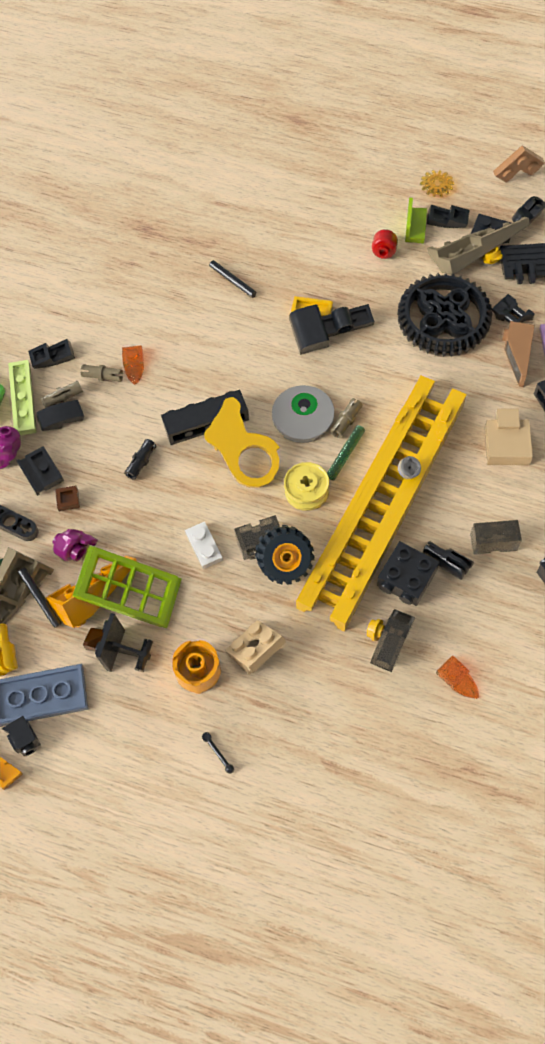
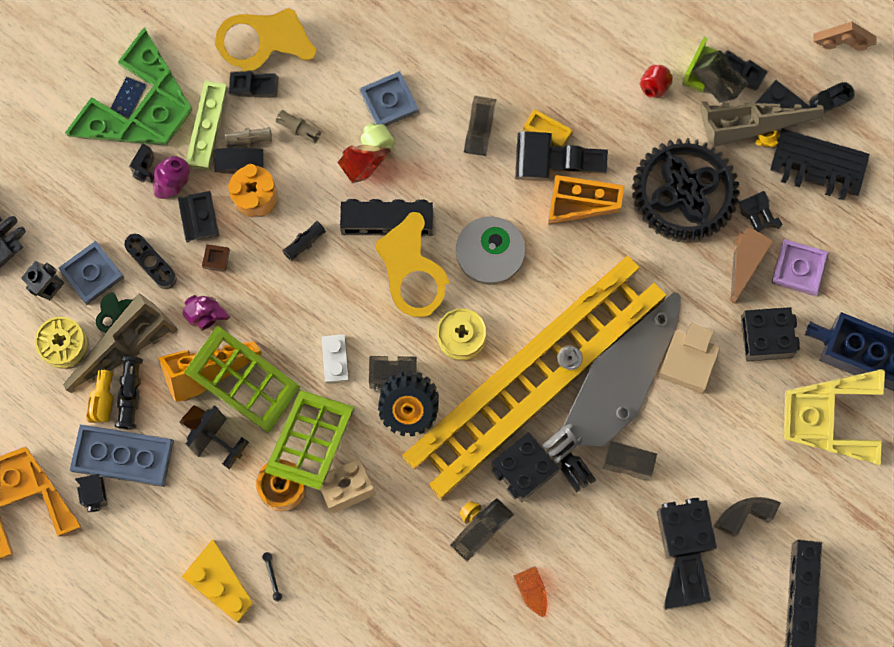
camera: 15 degrees right, 10 degrees up
(27, 635) = (128, 391): none -> black piece
(39, 597) = (153, 356): black bar -> none
(56, 306) = (275, 31): none -> yellow animal
(81, 433) = (241, 193): none -> light orange brick
(133, 362) = (335, 125): clear orange plate -> none
(167, 378) = (362, 161): none -> clear red slope
(169, 776) = (218, 582): none -> yellow wing
(171, 329) = (389, 99): none -> sand blue tile
(173, 360) = (377, 136): none -> yellowish green head
(207, 646) = (296, 474): none -> lime piece
(232, 278) = (487, 81): bar -> none
(255, 321) = (480, 125): none -> clear smoke brick
(345, 452) = (517, 310): clear green piece -> none
(346, 418) = (533, 272): dark tan pin -> none
(364, 346) = (583, 199): none -> light orange wedge
(434, 222) = (719, 77): none -> clear smoke brick
(443, 187) = (739, 27): clear yellow gear -> none
(456, 480) = (617, 383): none -> light grey wing

